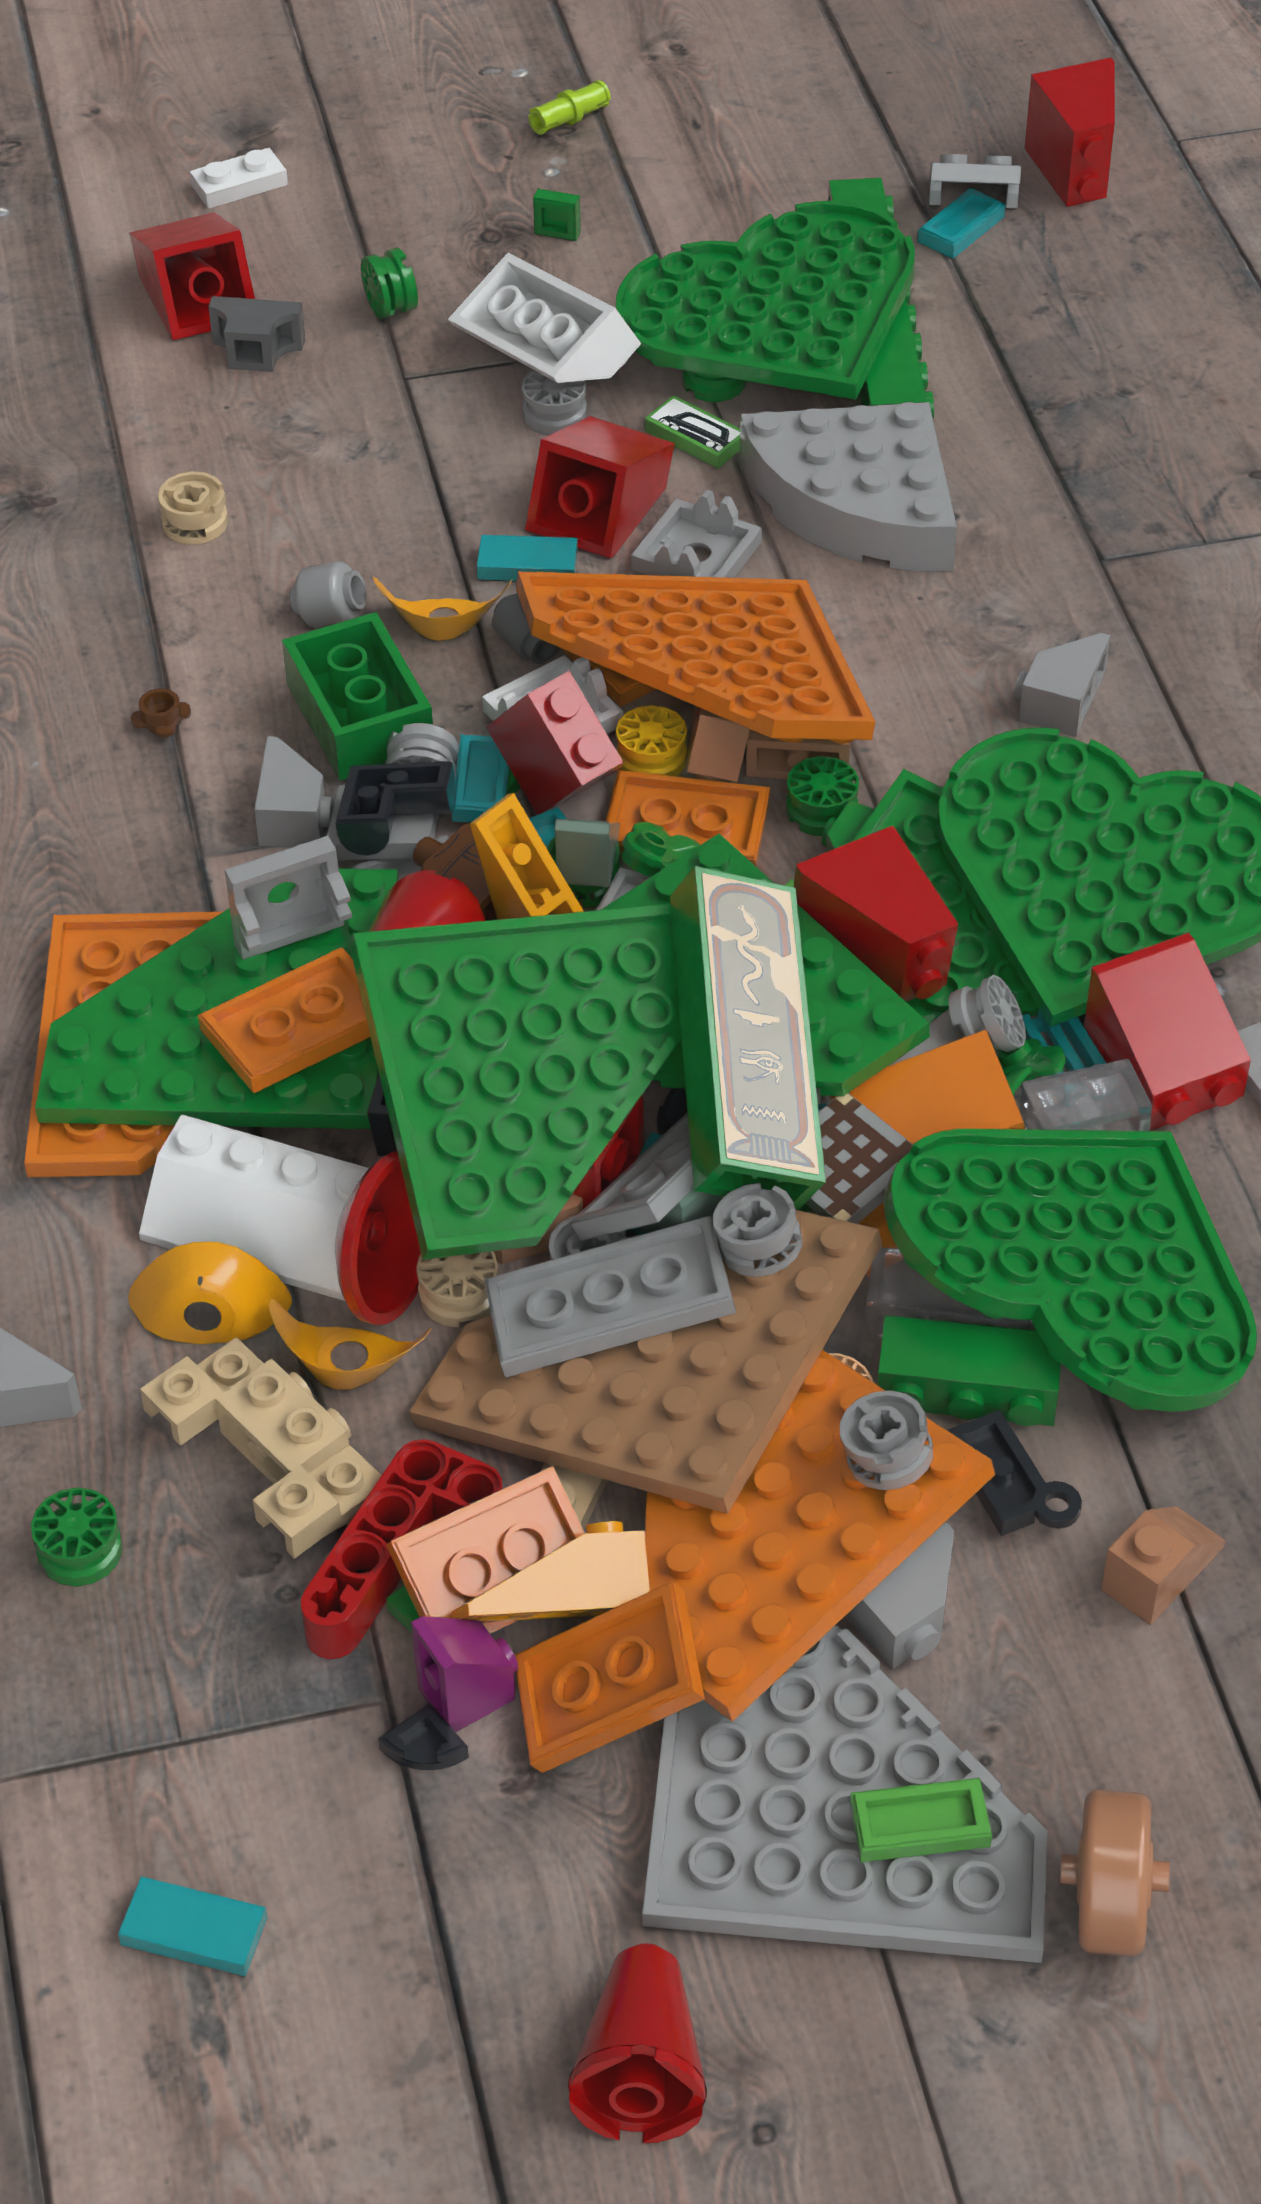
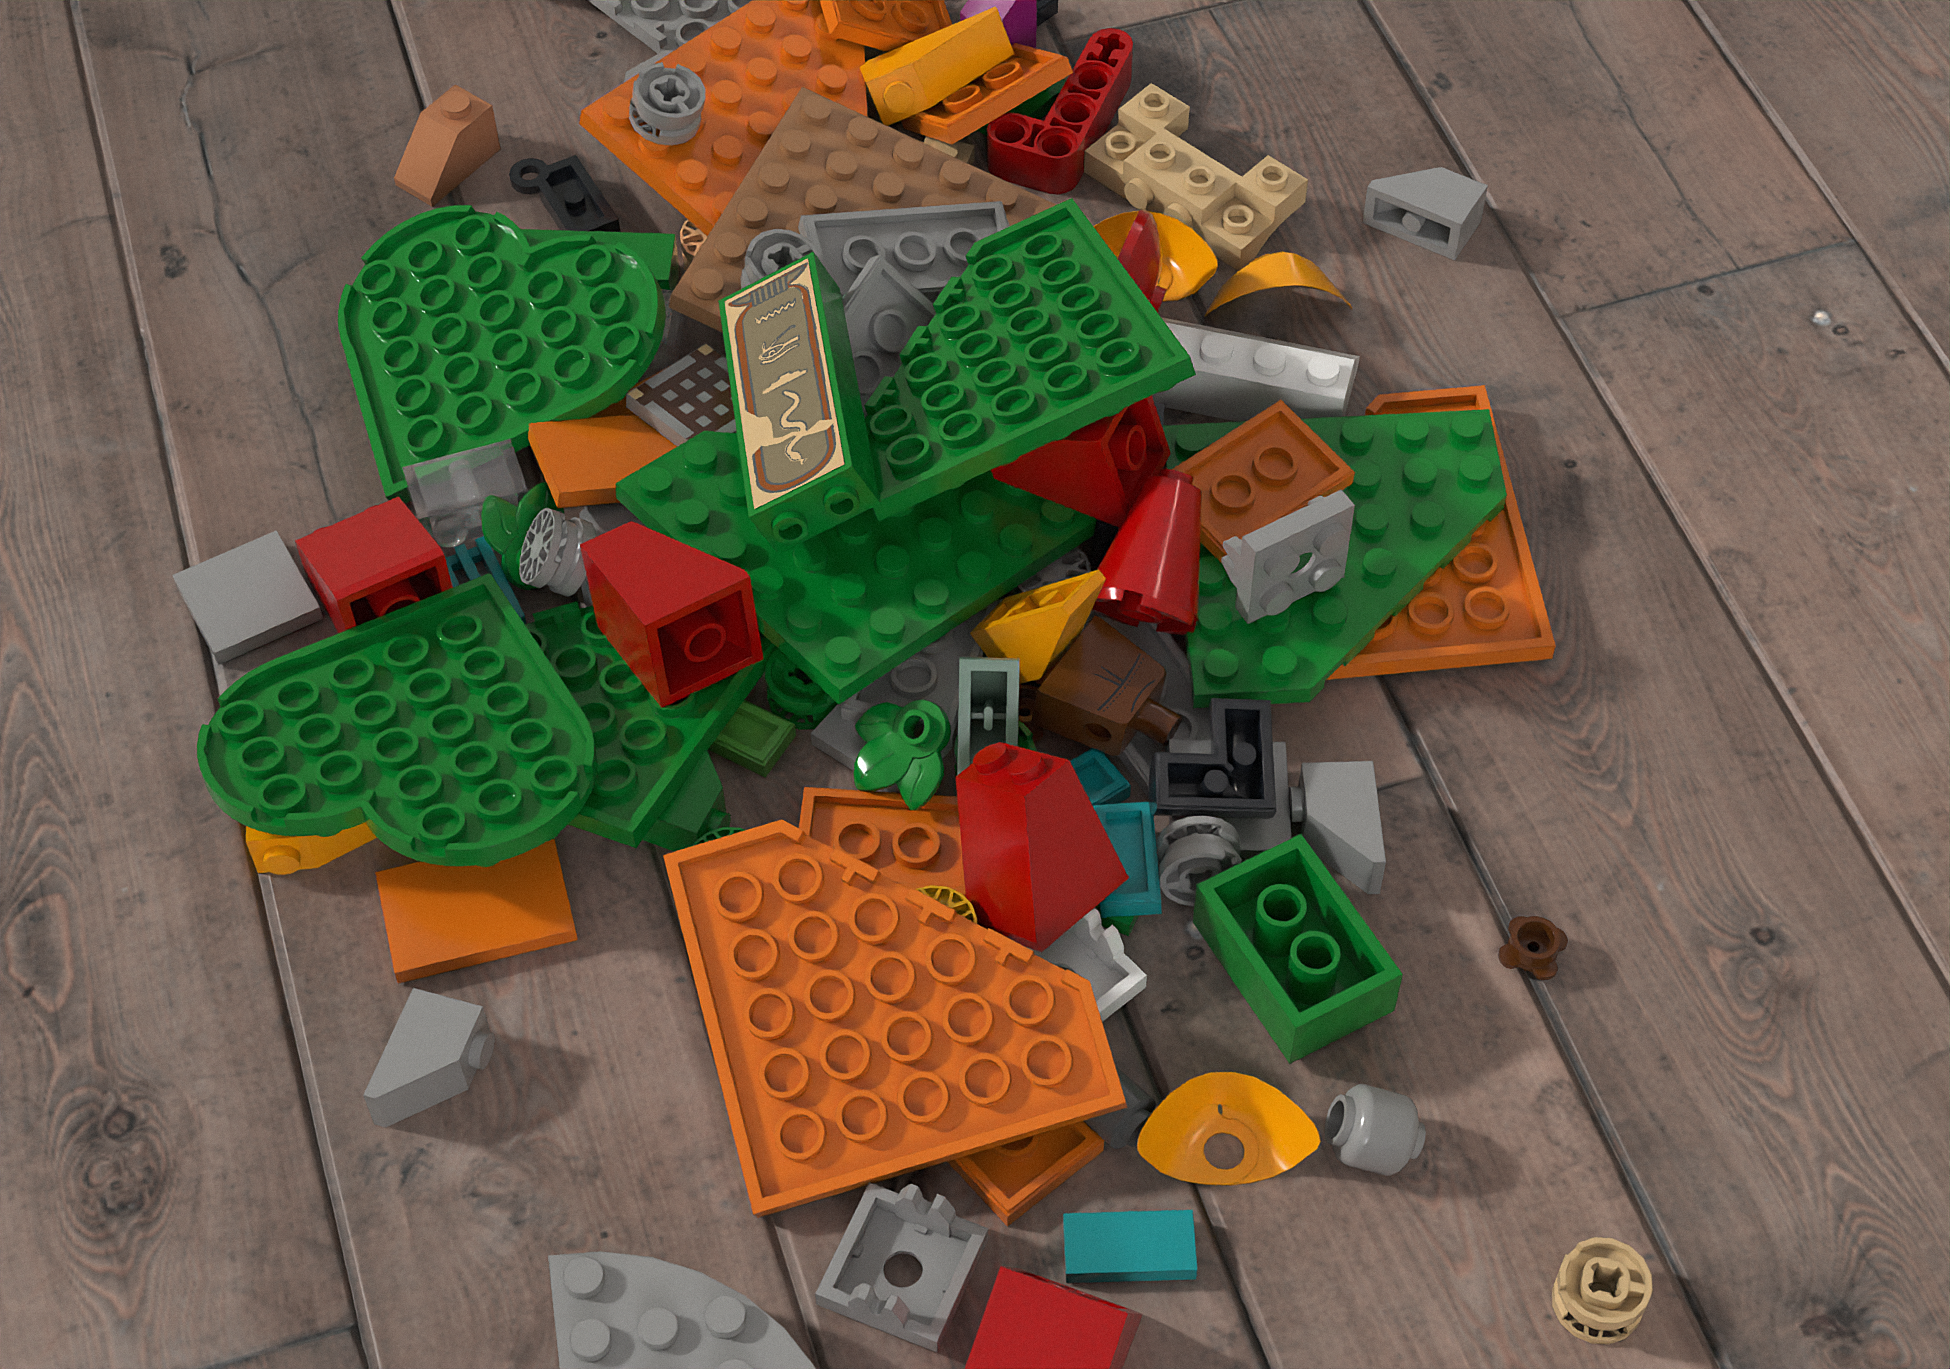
camera: 175 degrees right, 5 degrees up
(92, 1528) = (1327, 111): green wheel -> none

